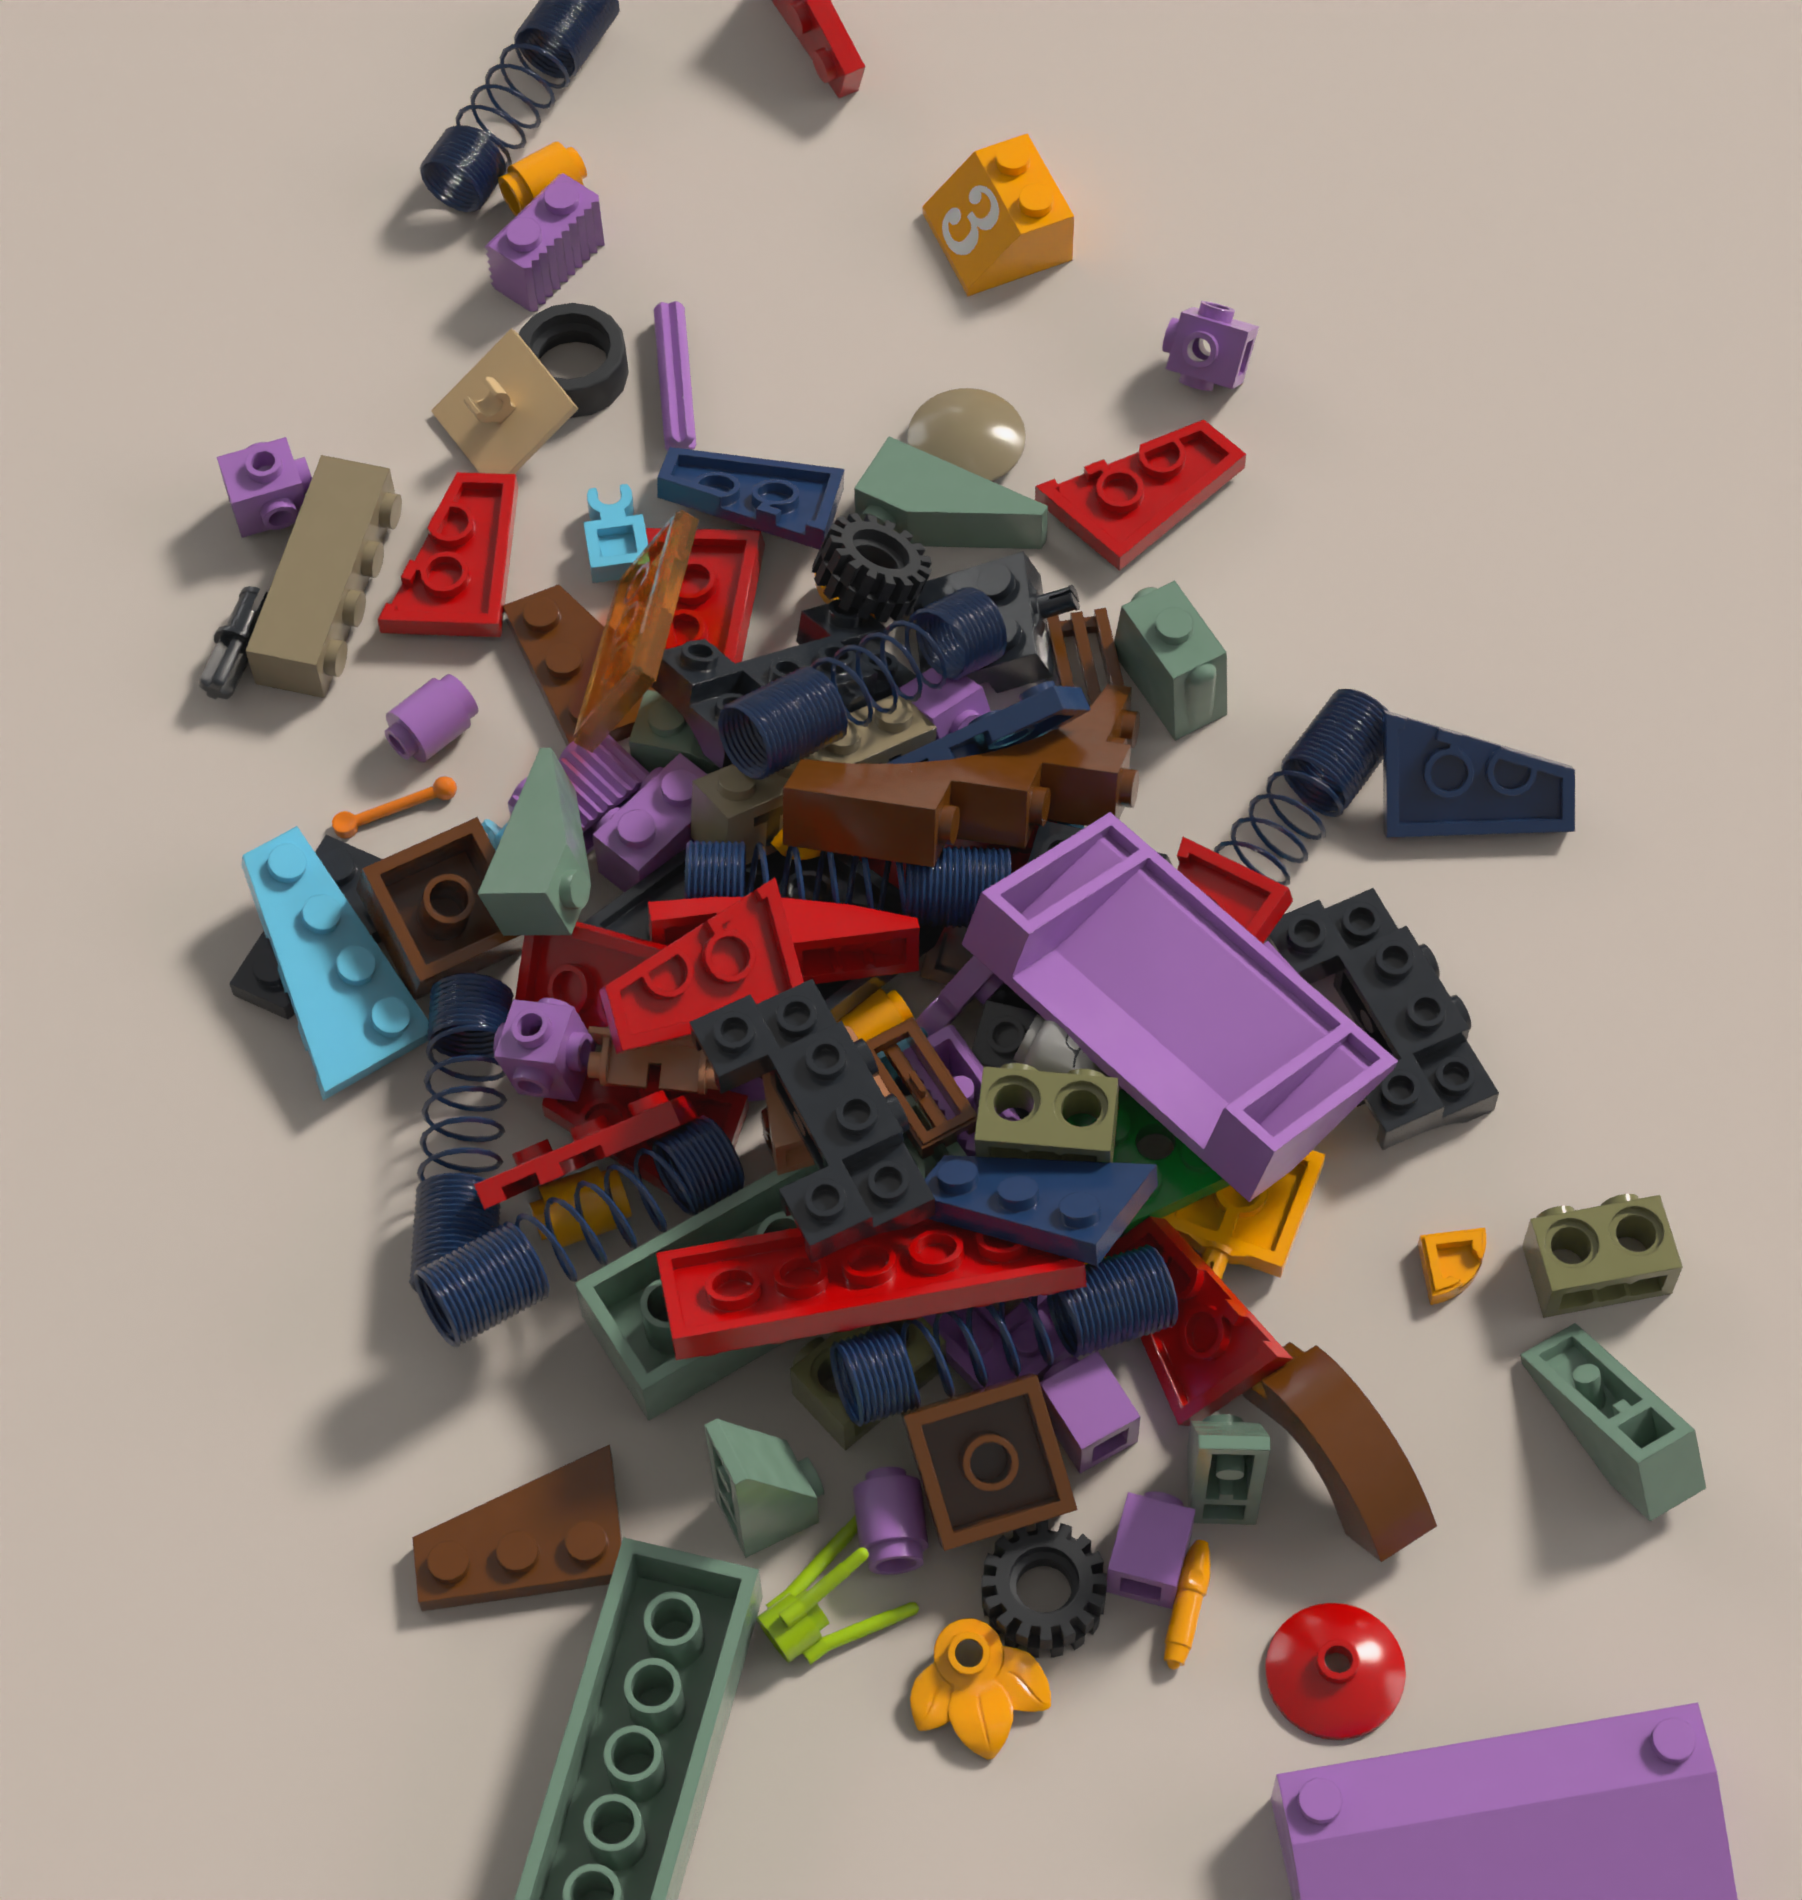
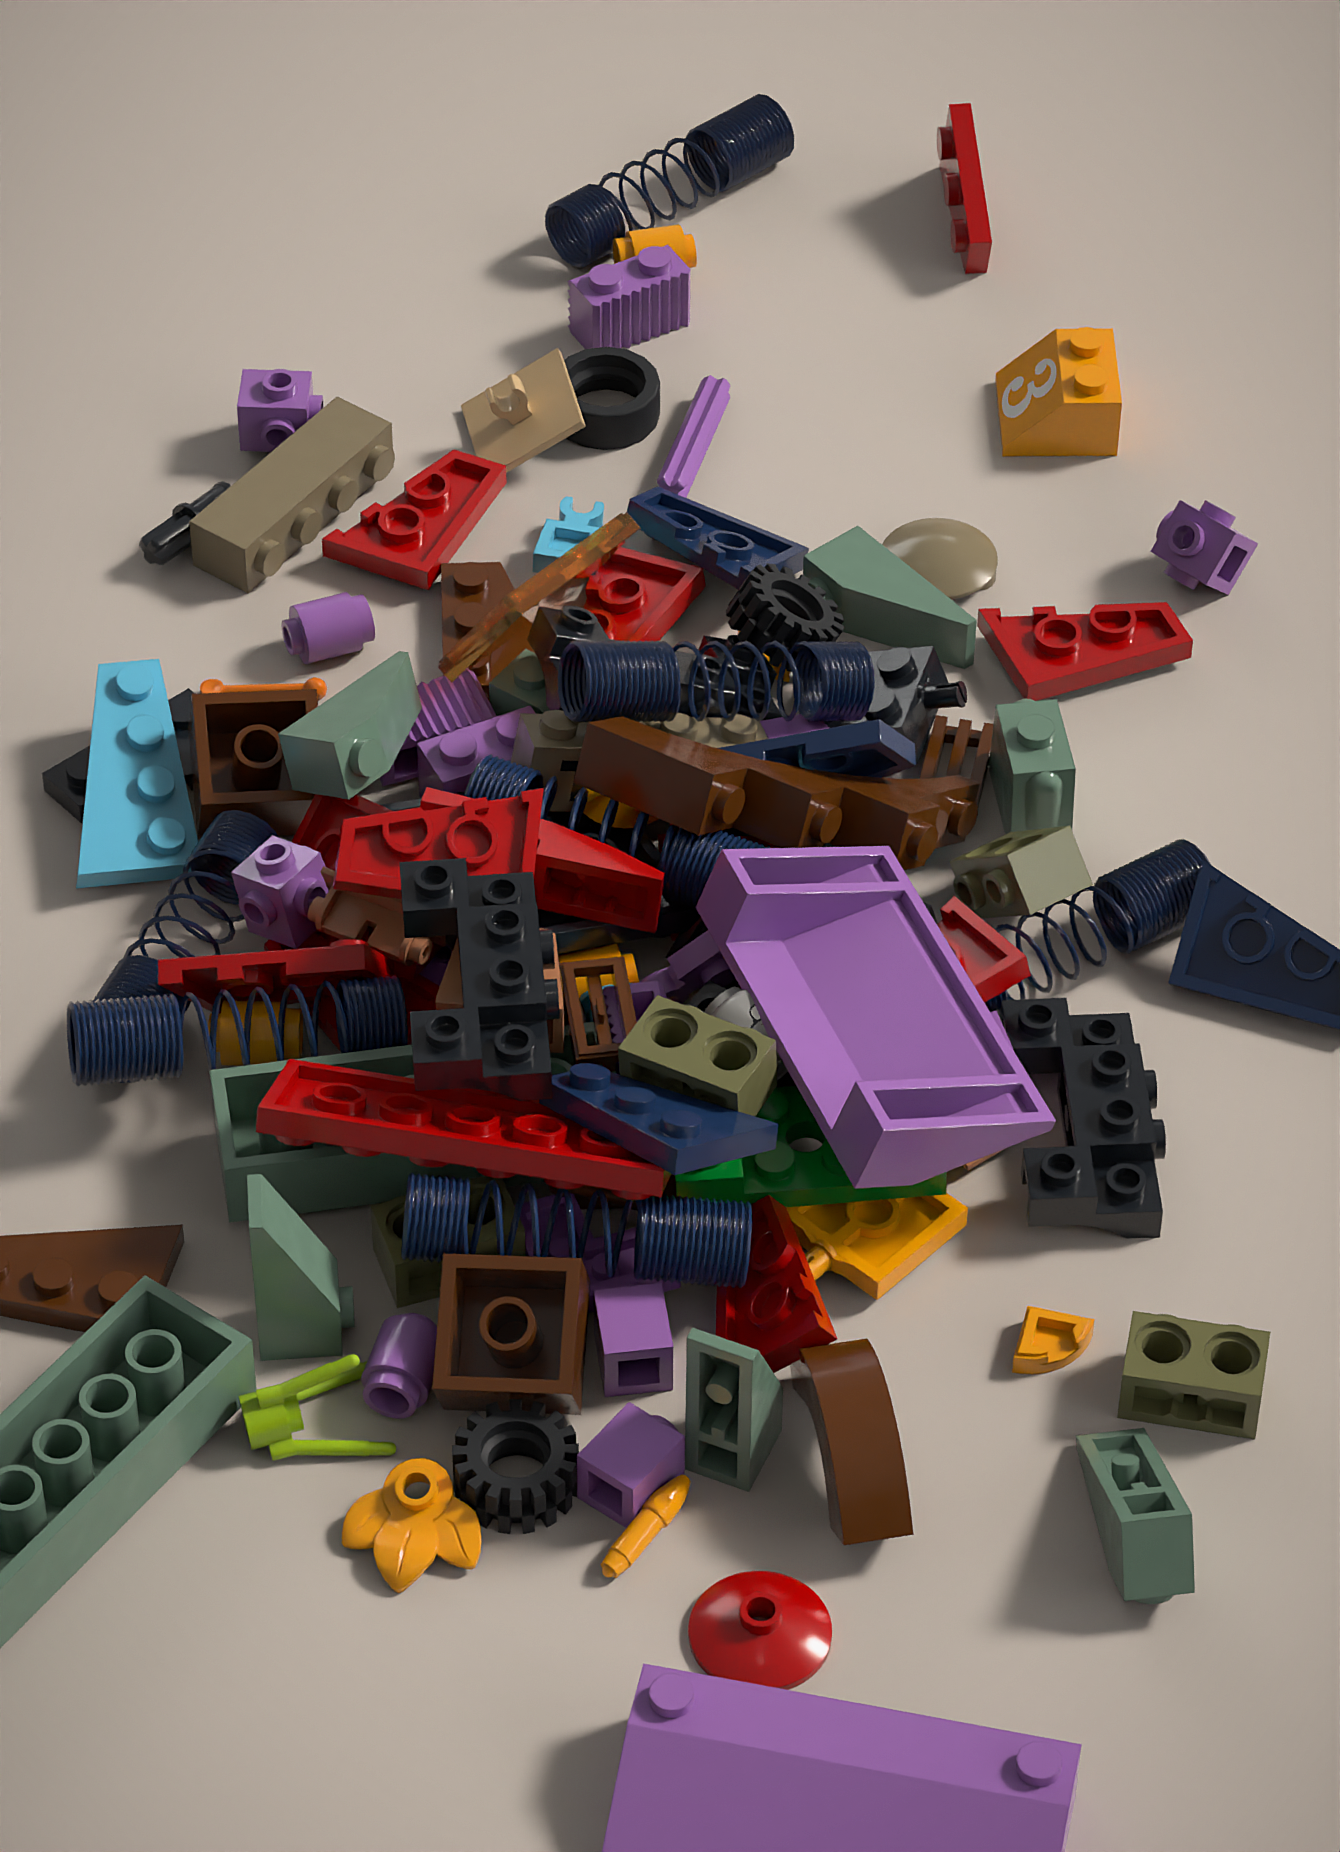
camera: 20 degrees right, 15 degrees down
(1217, 777) = (1020, 872): none -> olive brick

